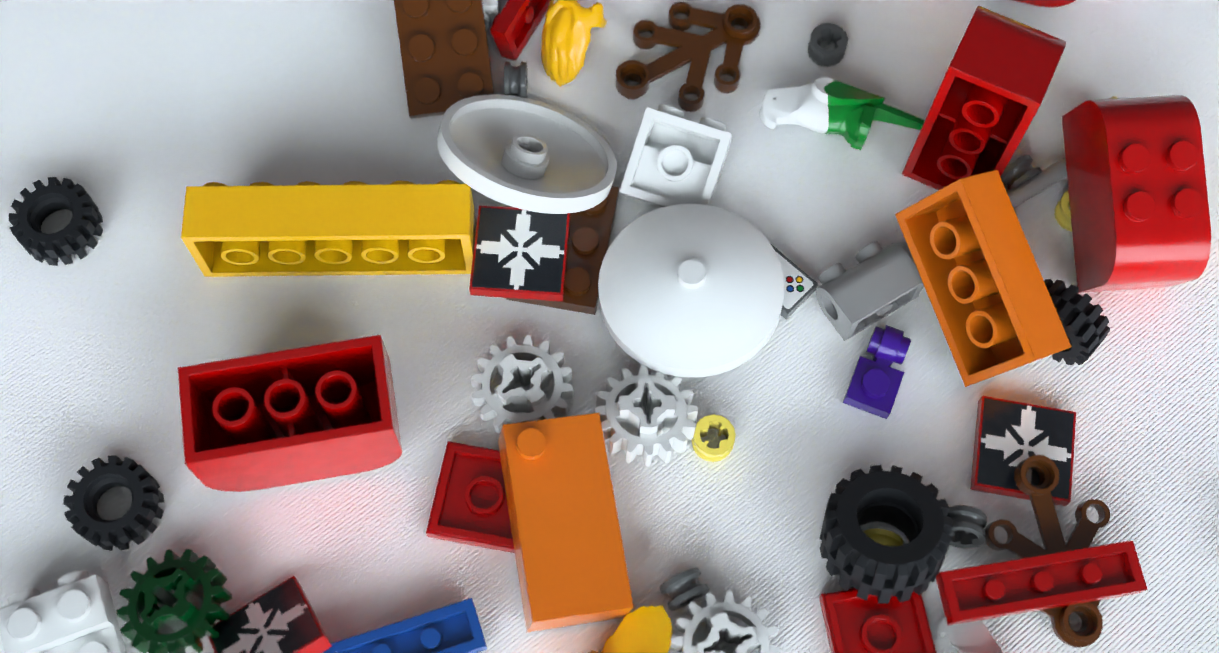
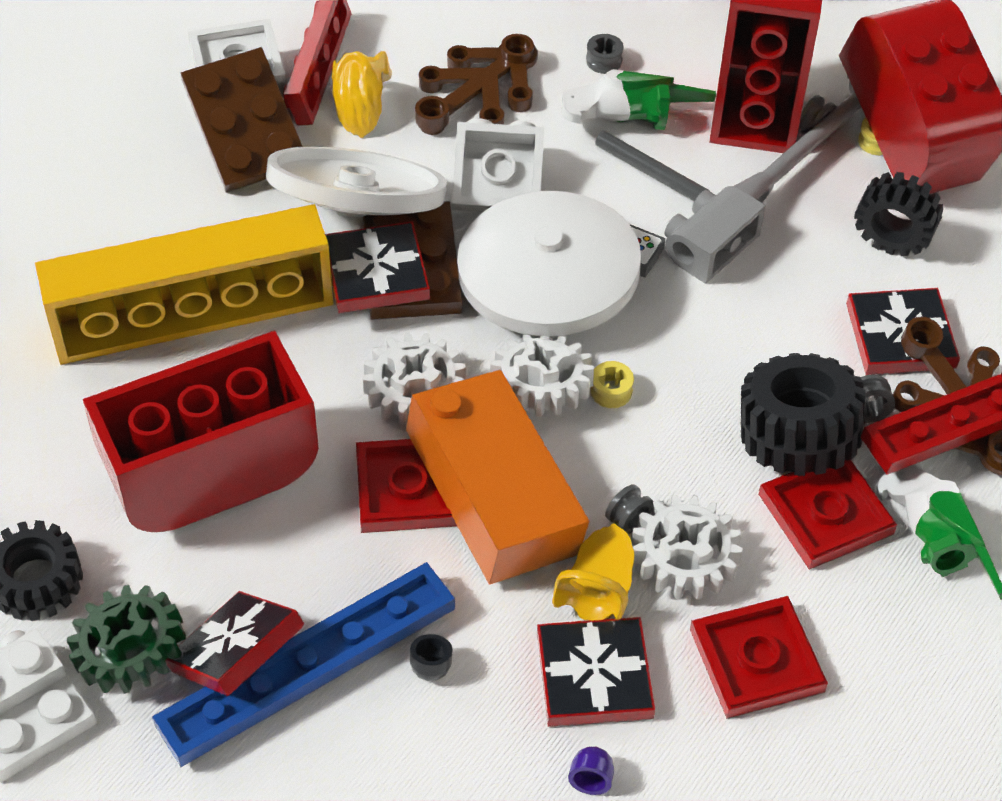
camera: 15 degrees left, 15 degrees down
(515, 79) = (320, 133): dark grey bush -> none
(832, 192) = (649, 165): none -> dark grey bar
(874, 381) = (746, 307): dark purple plate -> none
(982, 278) = (815, 186): orange brick -> none

